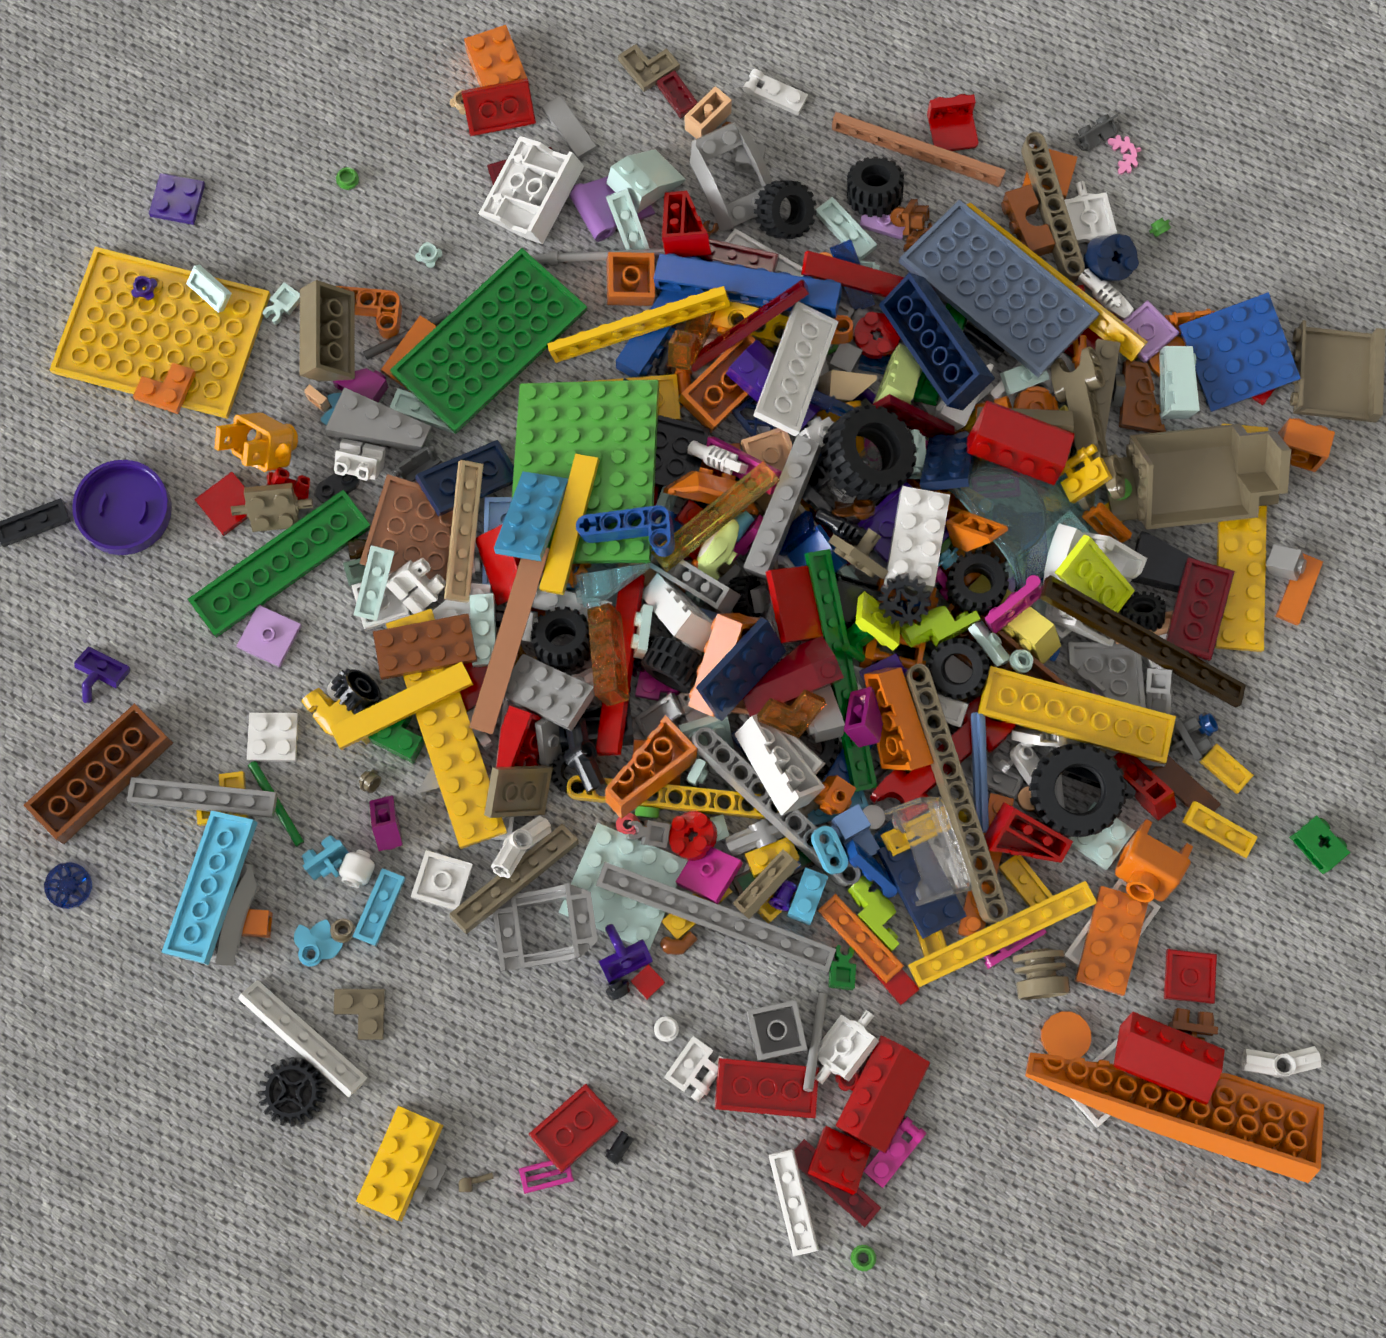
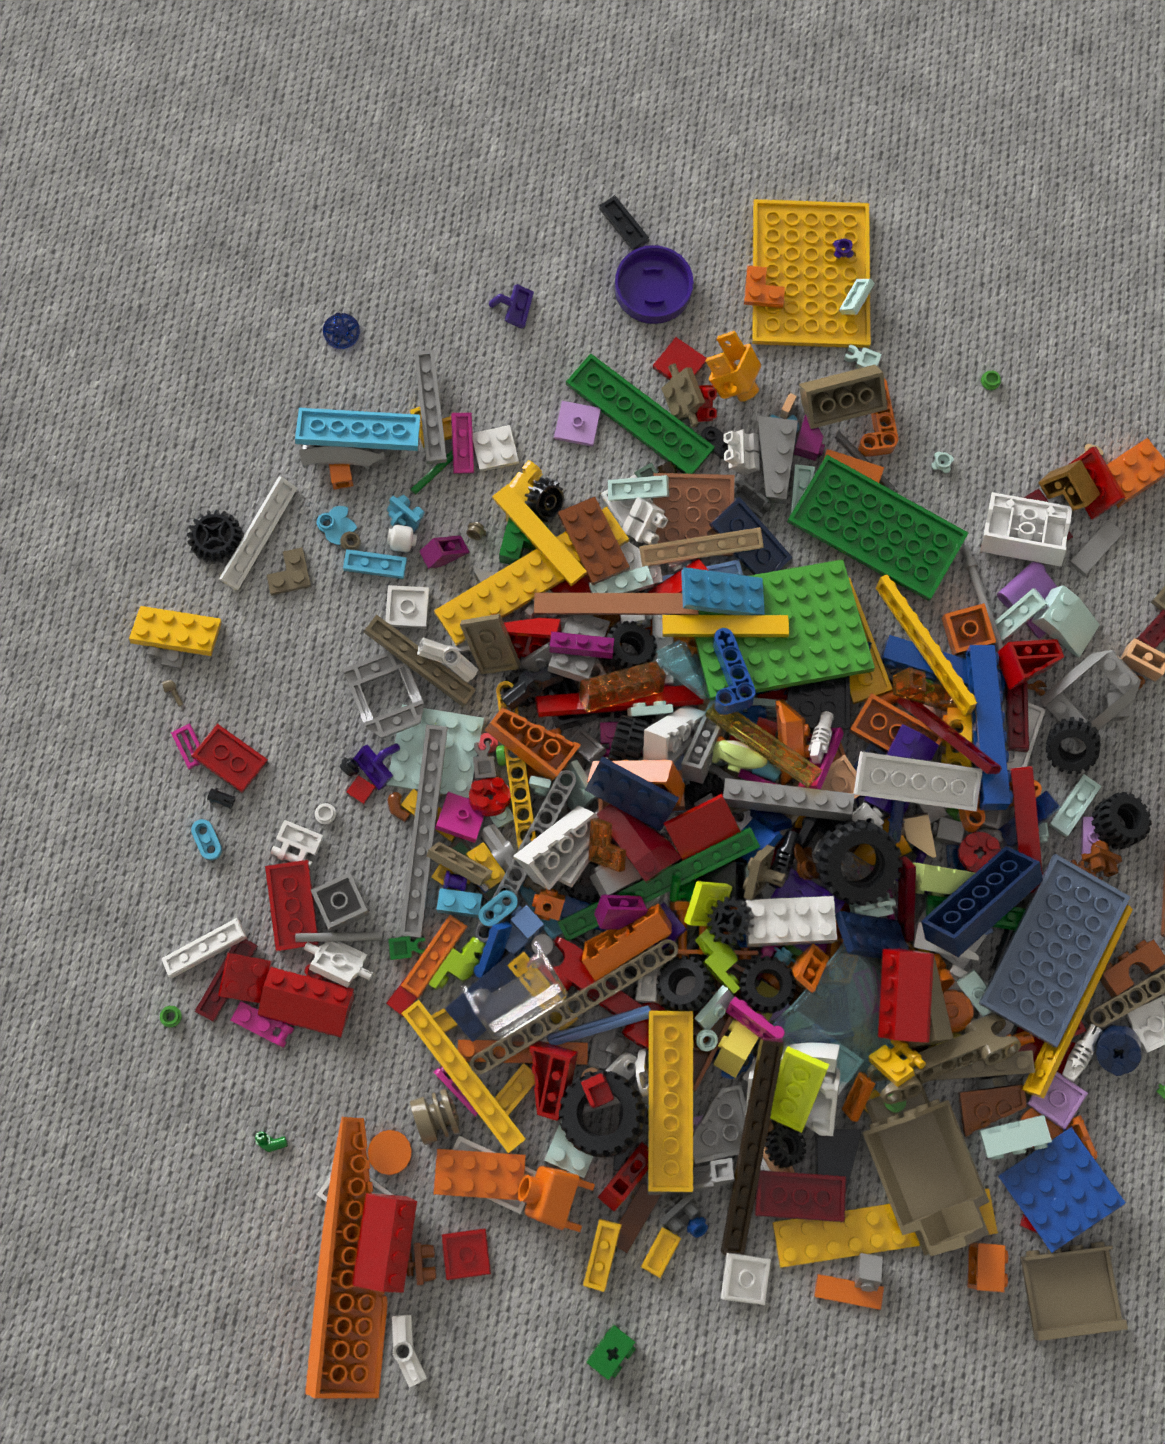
camera: 75 degrees right, 0 degrees up
(98, 774) = (432, 326): dark orange brick -> none
(177, 199) = (931, 254): plate -> none
(257, 771) = (462, 443): none -> dark pink tile
(495, 125) = (1073, 483): none -> pearl gold brick
(551, 685) = (581, 645): none -> magenta plate
(665, 1174) = (206, 840): none -> medium azure plate
(1030, 1170) = (268, 1143): none -> green arm
(1058, 784) = (597, 1090): none -> red panel
(1269, 688) = (745, 1278): none -> white plate

